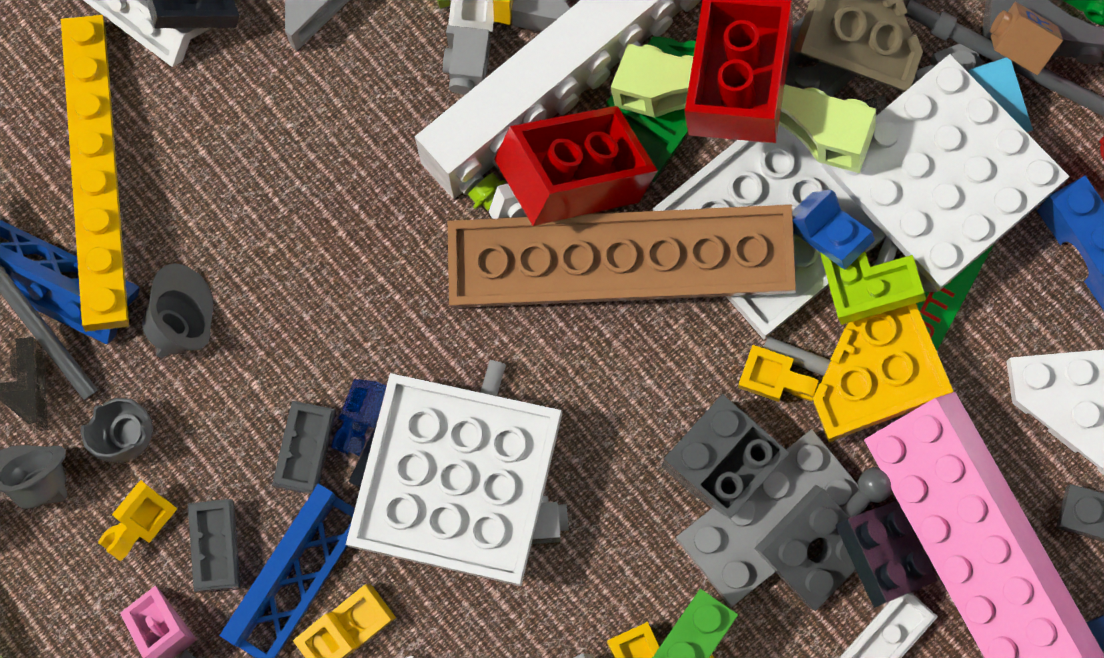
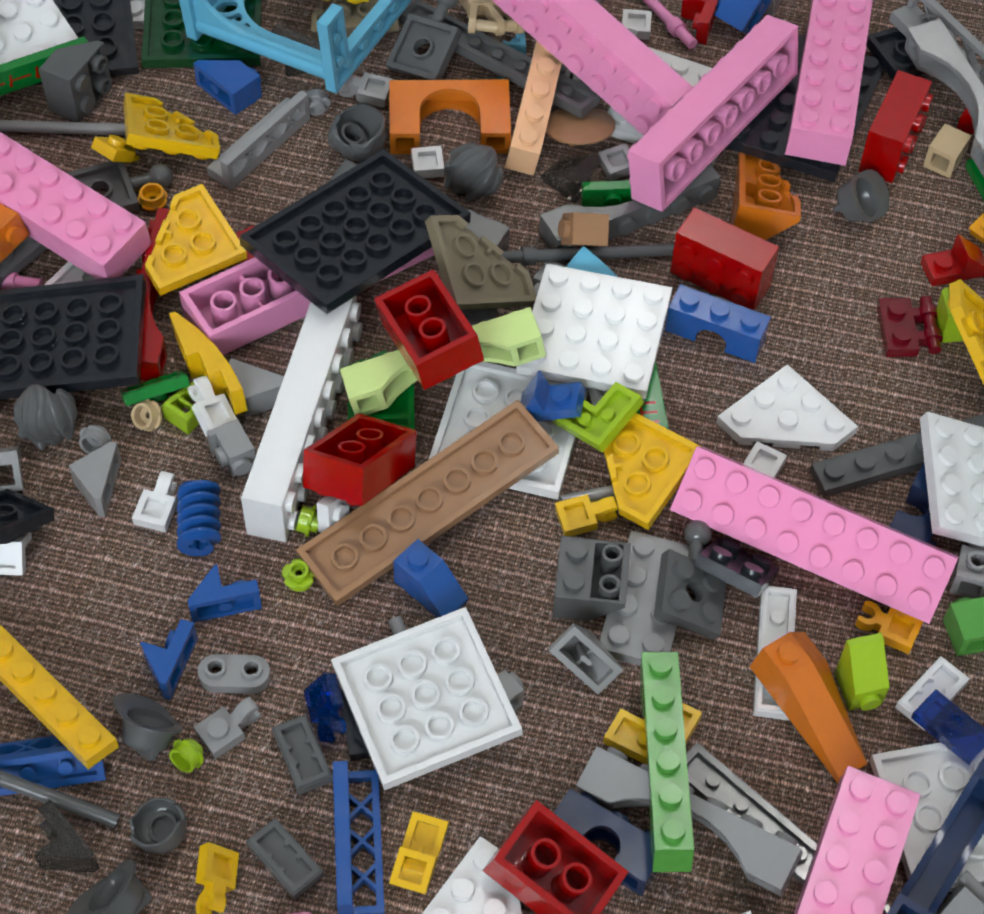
camera: 40 degrees left, 20 degrees down
(197, 372) = (186, 755): none -> lime plate
(239, 266) = (169, 662): none -> blue slope
(250, 367) = (224, 730): none -> light grey plate
(300, 312) = (233, 674): none -> light grey plate
(332, 220) = (215, 601): none -> blue slope
(347, 77) = (157, 506): none -> white plate
(377, 115) = (198, 517): none -> blue piece
(425, 249) = (297, 582): none -> lime plate
(558, 347) = (428, 580): none -> blue slope
(652, 543) = (586, 657): none -> light grey slope
(1016, 448) = (765, 459): none -> white plate

